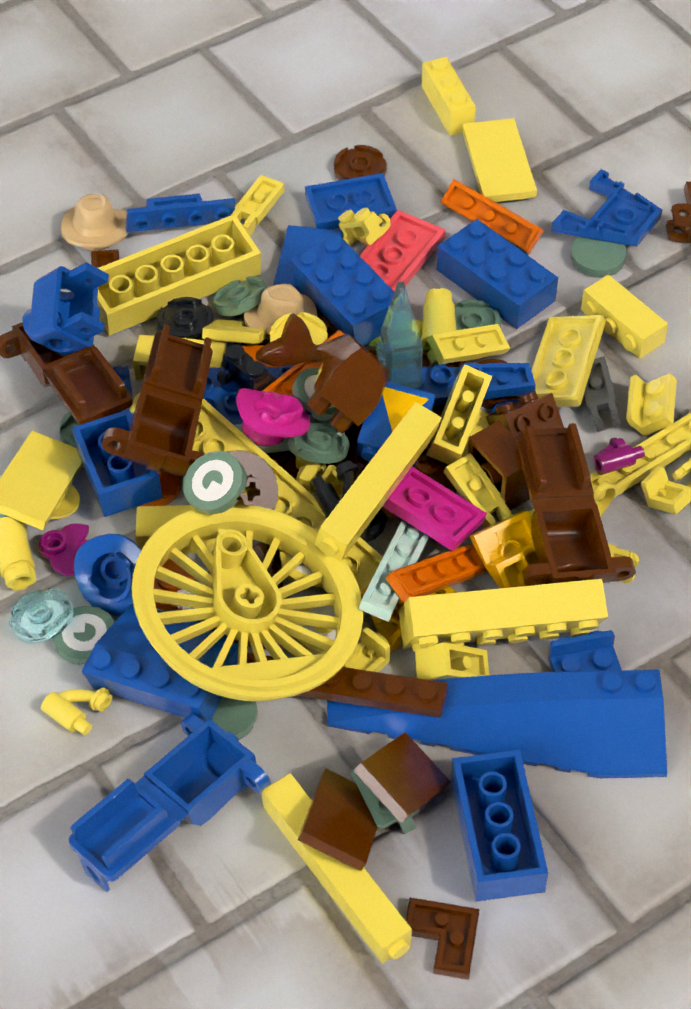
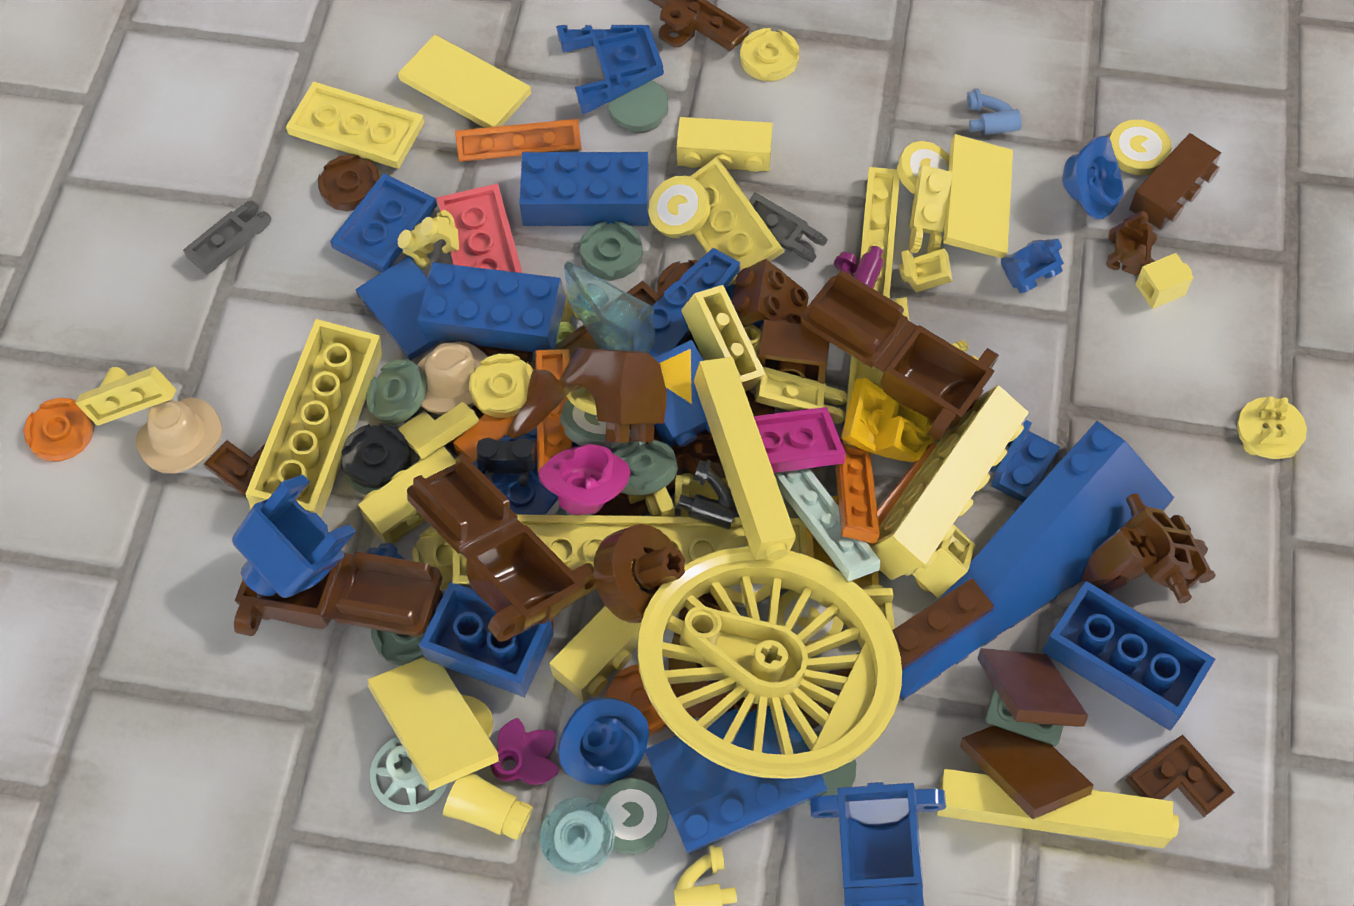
camera: 45 degrees left, 10 degrees up
(40, 175) = (58, 430): none -> orange tile
(87, 177) = (125, 394): none -> light yellow piece
(177, 212) = (243, 357): blue bracket -> none
(214, 482) = (640, 583): sand green tile -> none
(252, 142) = (227, 236): none -> dark grey hinge
(258, 202) = (301, 290): light yellow hinge -> none
(402, 136) = (355, 125): none -> light yellow plate
(437, 314) = (591, 260): light yellow plant -> none
(447, 95) = (354, 56): light yellow brick -> none
(467, 344) = (648, 269): light yellow plate -> none
(544, 328) = (679, 206): none -> light yellow tile
(596, 780) = (1151, 546): none -> reddish brown piece
(651, 403) = (832, 202): light yellow bracket -> none

